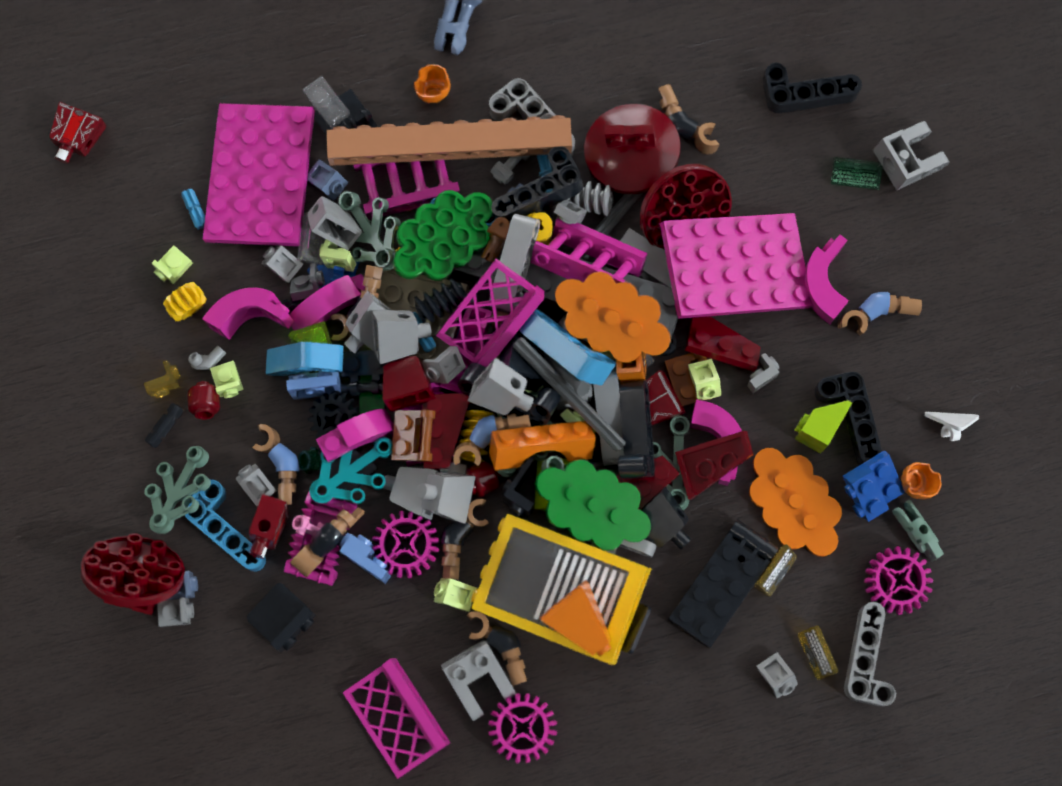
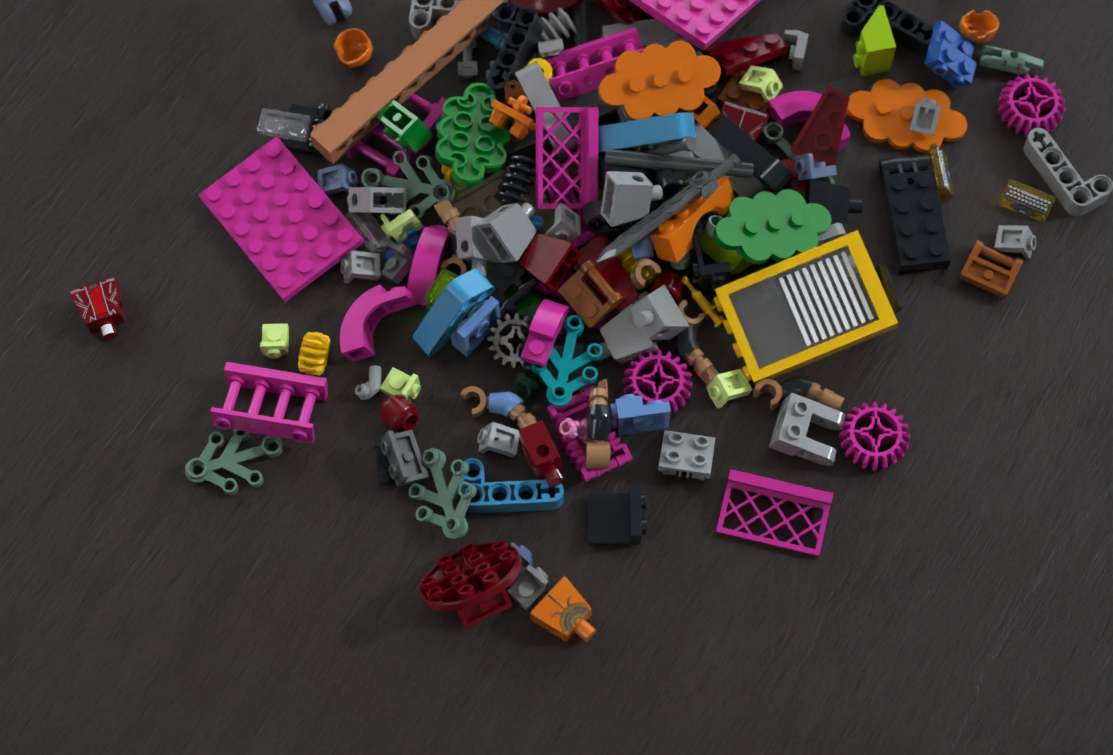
camera: 40 degrees left, 10 degrees down
(60, 328) = (230, 461): none -> sand green plant
(132, 290) = (273, 381): none -> dark pink fence
(161, 386) = (356, 428): clear yellow bracket -> none
(176, 437) = (404, 458): none -> dark grey bracket
(179, 654) = (564, 612): none -> orange torso
(193, 205) = (256, 287): dark azure piece -> none
(376, 616) = (686, 454): none -> light grey hinge
(401, 183) = (404, 126): none -> green brick
(476, 239) = (522, 123): none -> orange hips
(496, 511) = (703, 303): none -> yellow piece
(563, 428) = (701, 184): none -> dark grey sword
(580, 620) = (846, 306): orange slope -> none
(672, 487) = (808, 169): none -> sand blue bracket
(730, 683) = (988, 275): none -> dark orange plate
(803, 517) = (925, 116): none -> light grey bracket

